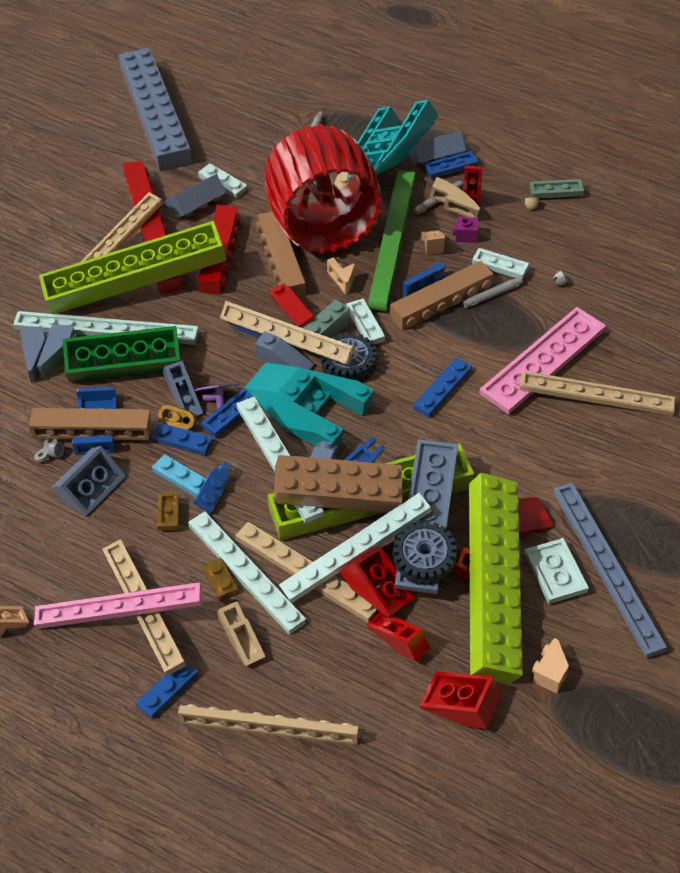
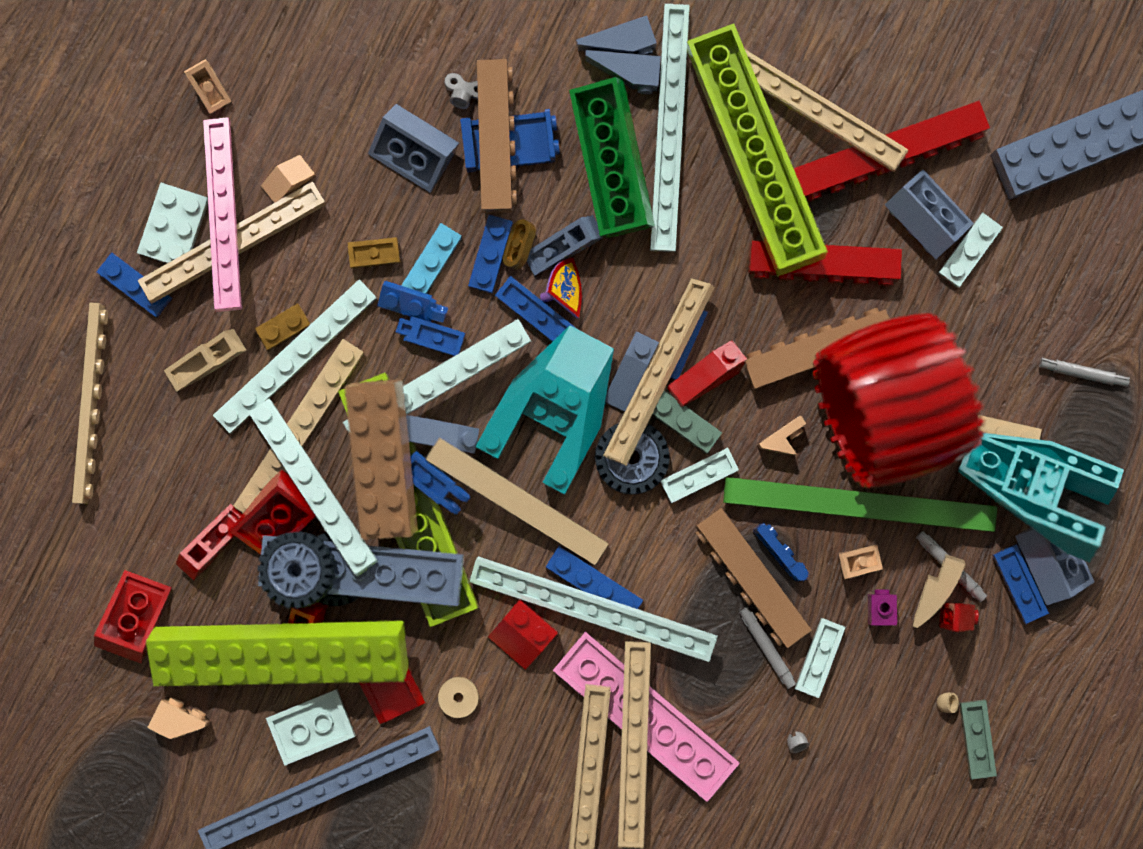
camera: 85 degrees right, 35 degrees up
(98, 571) = (287, 178): none -> light nougat slope
(119, 656) = (172, 223): none -> light aqua plate
(241, 476) = (431, 335): none -> blue hinge
(377, 418) = (516, 501): none -> tan tile
(464, 375) = (593, 608): none -> light aqua plate
(480, 427) = (523, 634): none -> red slope
(532, 466) = (448, 703): none -> tan piece
(564, 359) = (634, 744): none -> tan plate

